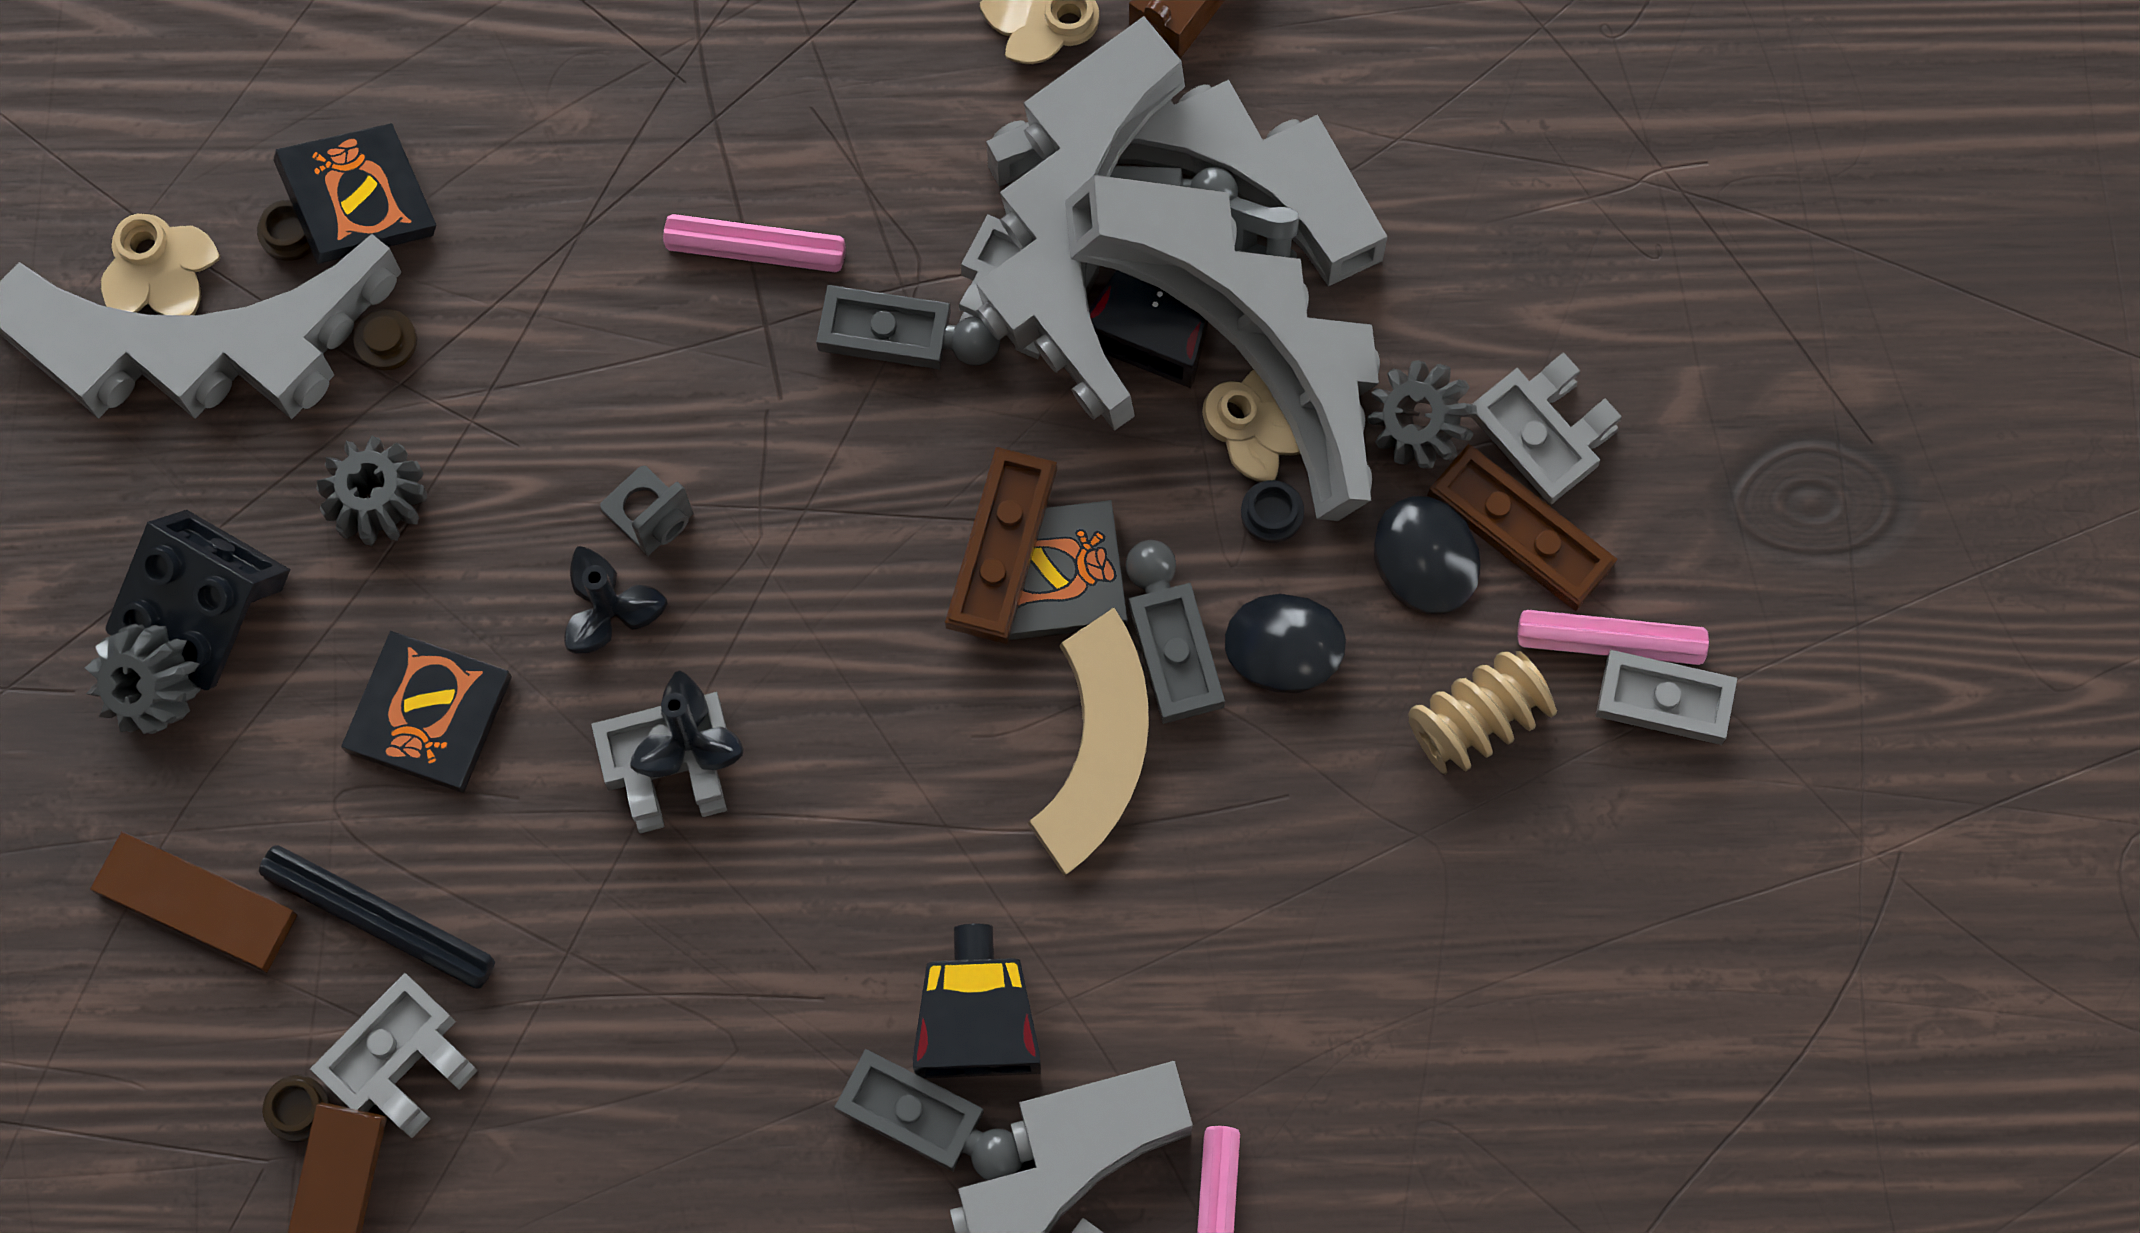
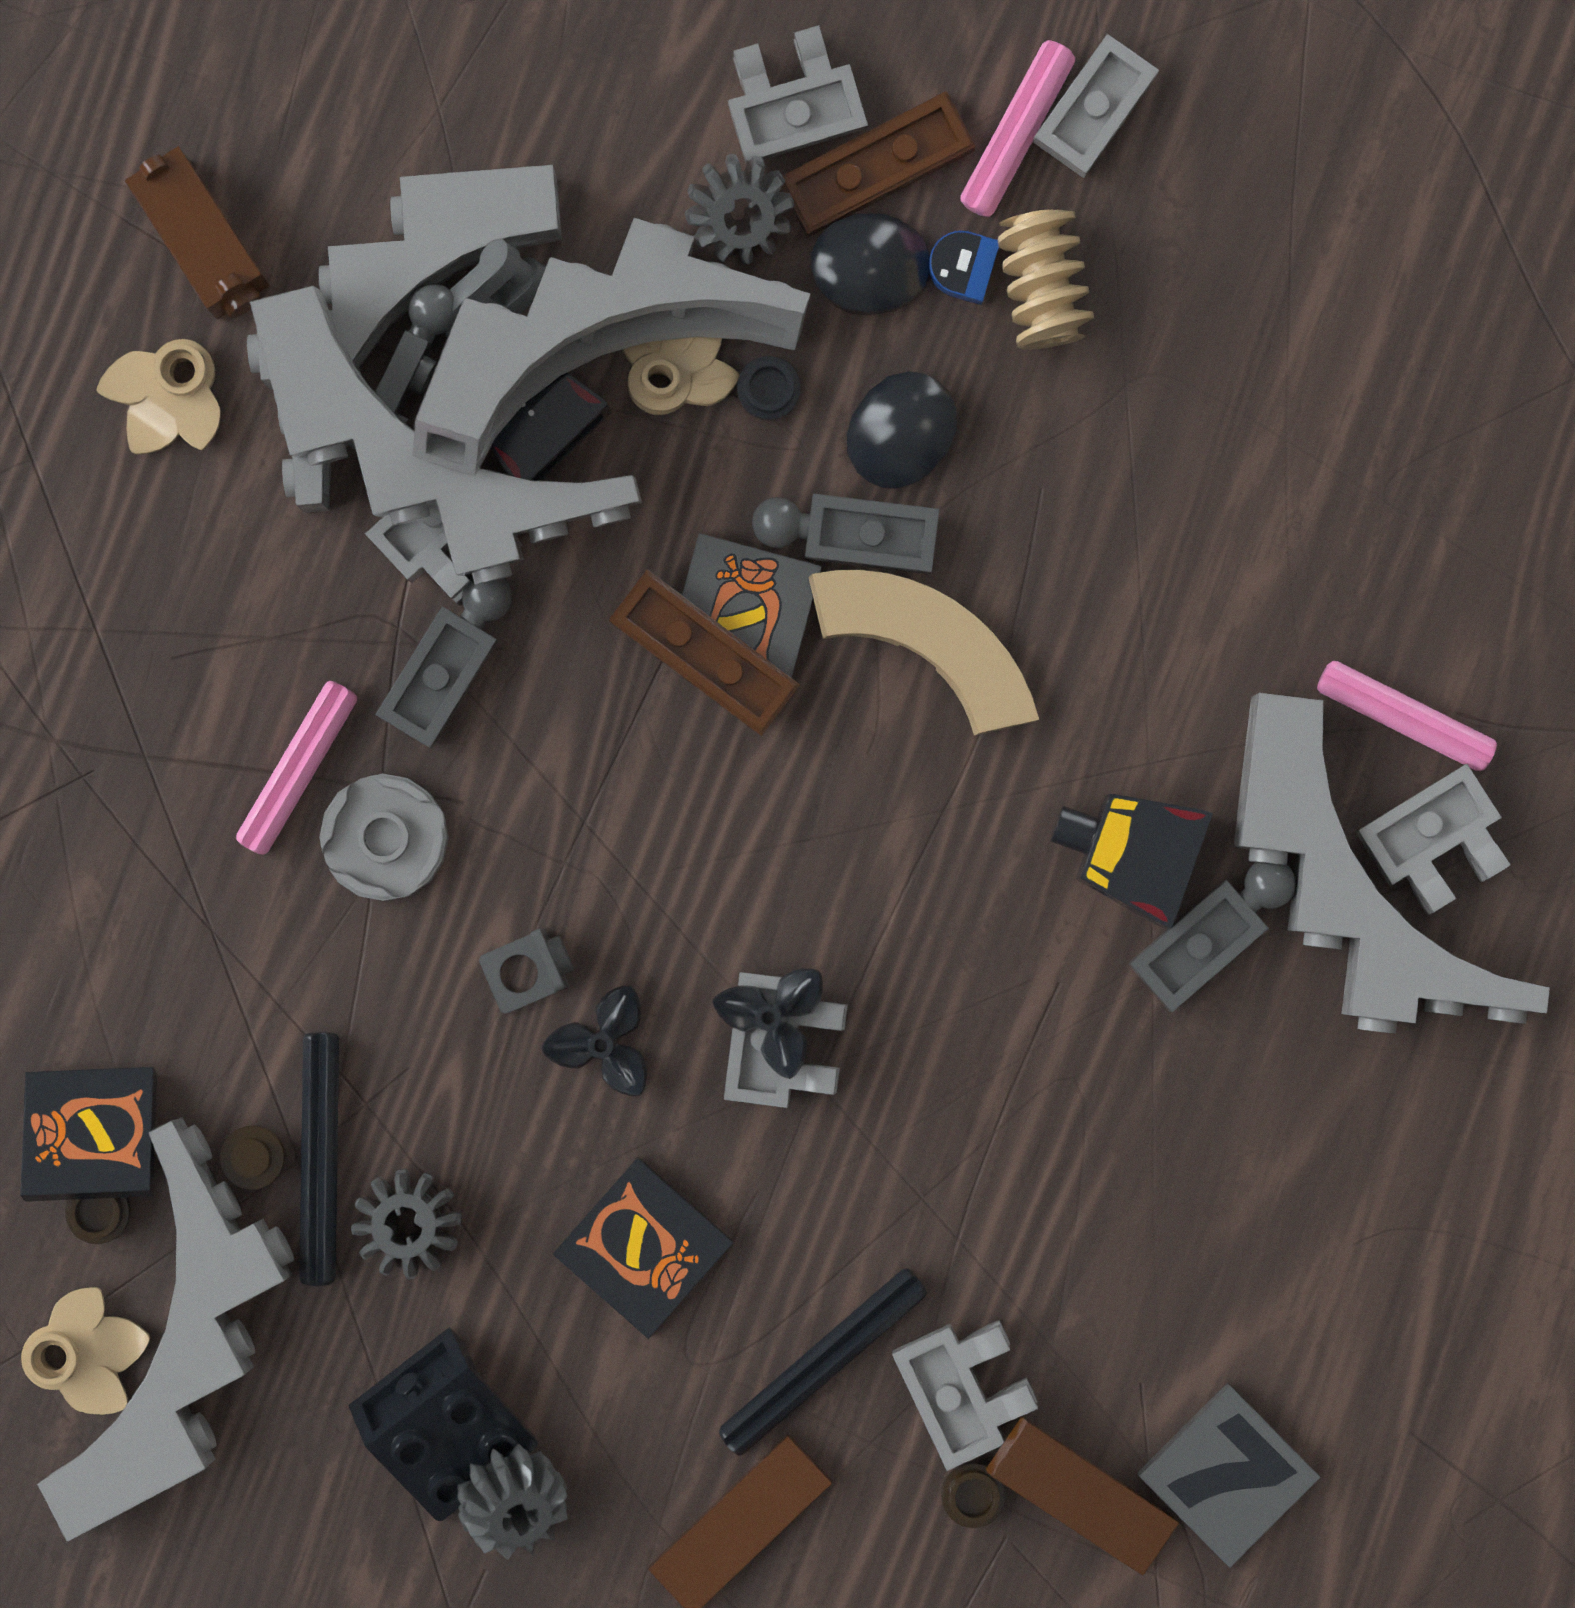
camera: 70 degrees left, 15 degrees up
(404, 397) = (319, 1158): none -> black axle
(721, 342) = (384, 837): none -> light grey tile
(1463, 639) = (963, 264): none -> tile

